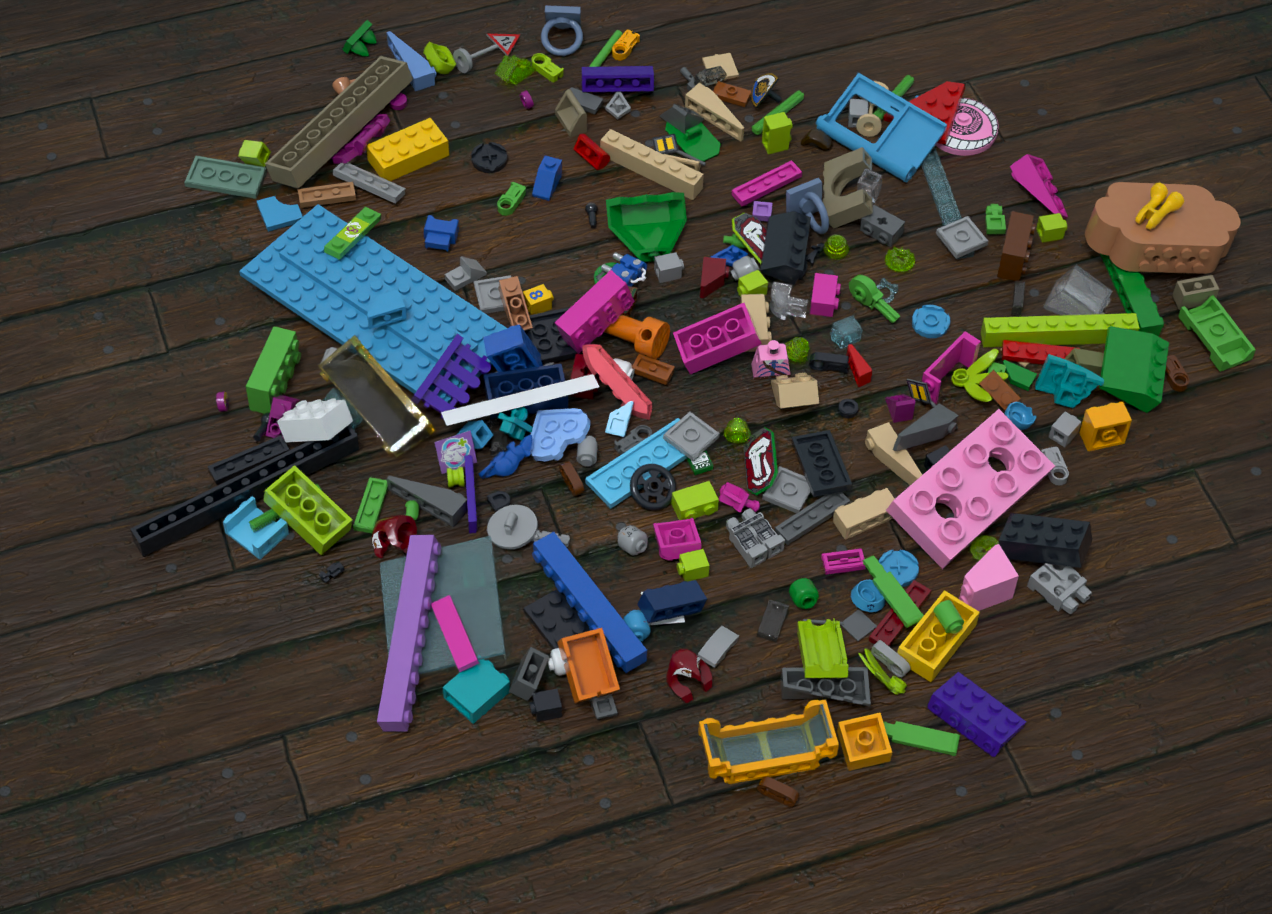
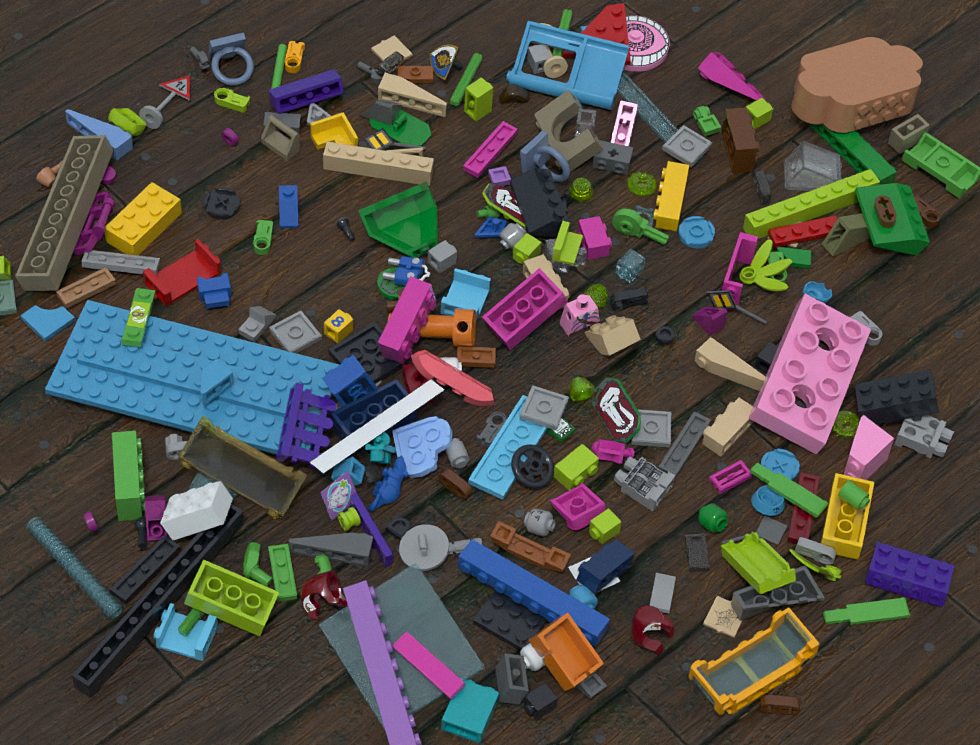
camera: 25 degrees left, 0 degrees up
(187, 437) = (74, 567): none -> clear light blue piece
(333, 571) = (279, 647): black piece -> none
(344, 490) = (251, 565): none -> bright green arm
(354, 42) = (38, 132): green tile -> none
(413, 212) = (181, 275): none -> red panel
(514, 69) = (204, 111): clear neon green slope -> none
(514, 303) = (323, 337): nougat slope -> none
(536, 21) = (201, 57): none -> dark grey bar
(591, 152) = (316, 169): red brick -> none
(609, 562) = (528, 550): none -> dark orange slope
(619, 420) = (471, 414): tile -> none
(624, 121) = (333, 129): none -> yellow panel
(676, 308) = (466, 292): none -> medium azure panel
(713, 275) = (485, 250): dark red slope -> none
(767, 690) = (723, 618): none -> tan piece
(789, 291) = (566, 245): none -> lime panel
(821, 463) = (670, 394): black plate -> none
(861, 370) = (657, 295): red slope -> none
(864, 741) = (834, 632): light orange brick -> none
(910, 197) = (624, 123): none -> bright pink slope
(922, 279) = (672, 196): none -> yellow brick
(928, 428) = (748, 330): dark grey slope -> none
(999, 389) = (789, 275): dark orange plate -> none
(1065, 429) = (859, 293): light grey brick -> none
(1066, 381) = (842, 249): teal slope -> none
(1105, 426) = (894, 279): light orange brick -> none
(1122, 356) = (888, 210): none -> reddish brown beam
(1158, 196) = (862, 59): yellow piece -> none

